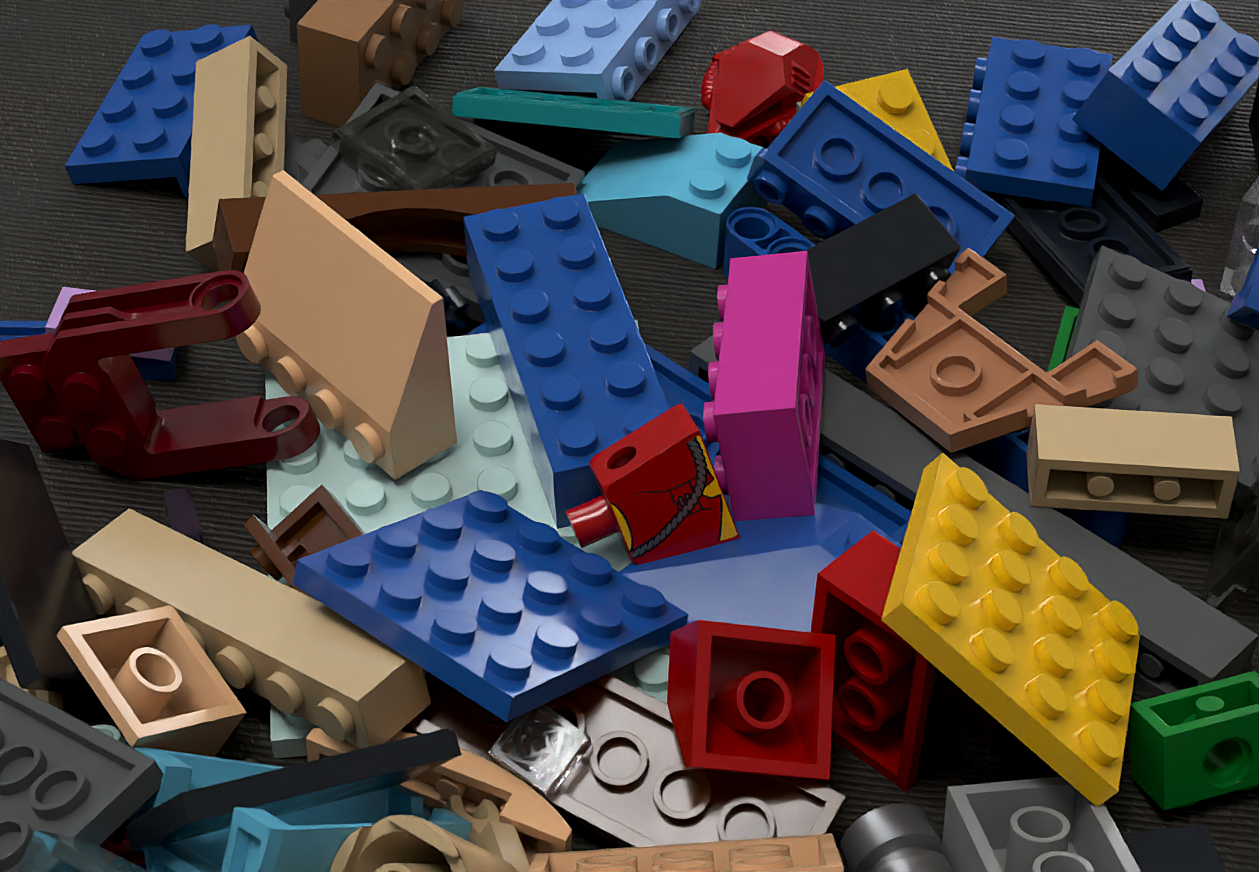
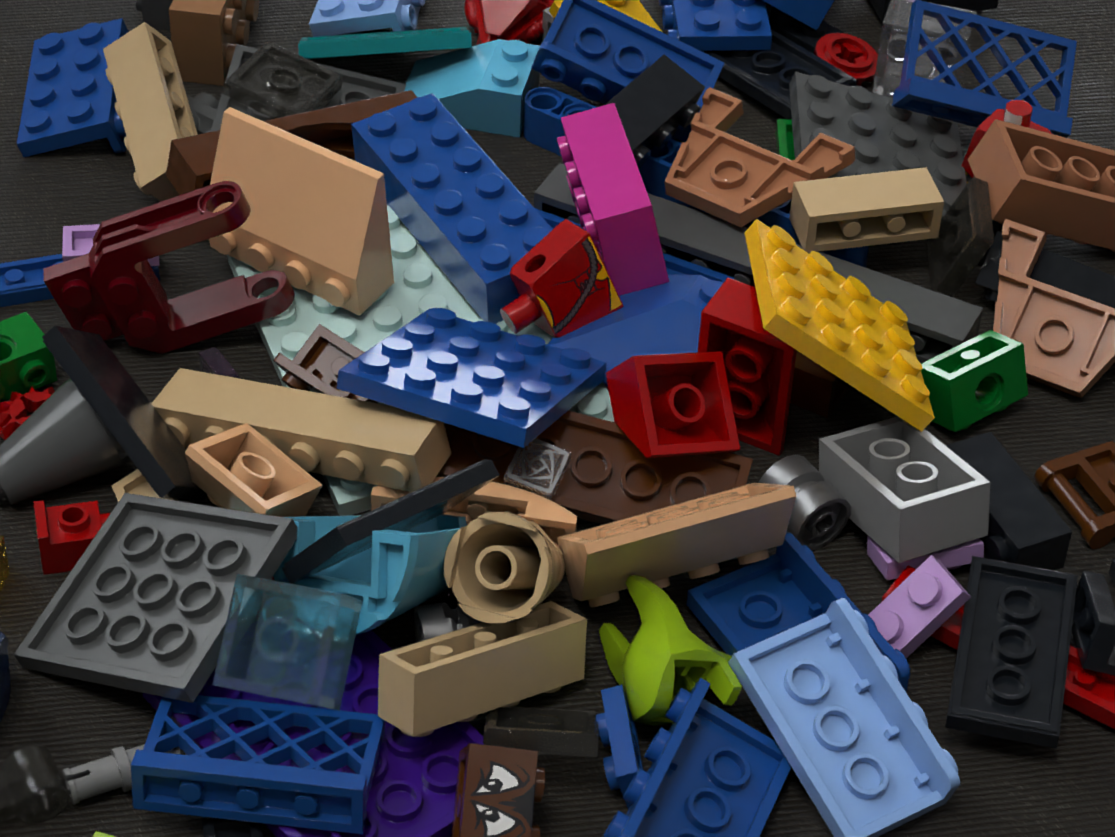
camera: 15 degrees left, 0 degrees up
(1204, 224) = (857, 56): none -> red gear

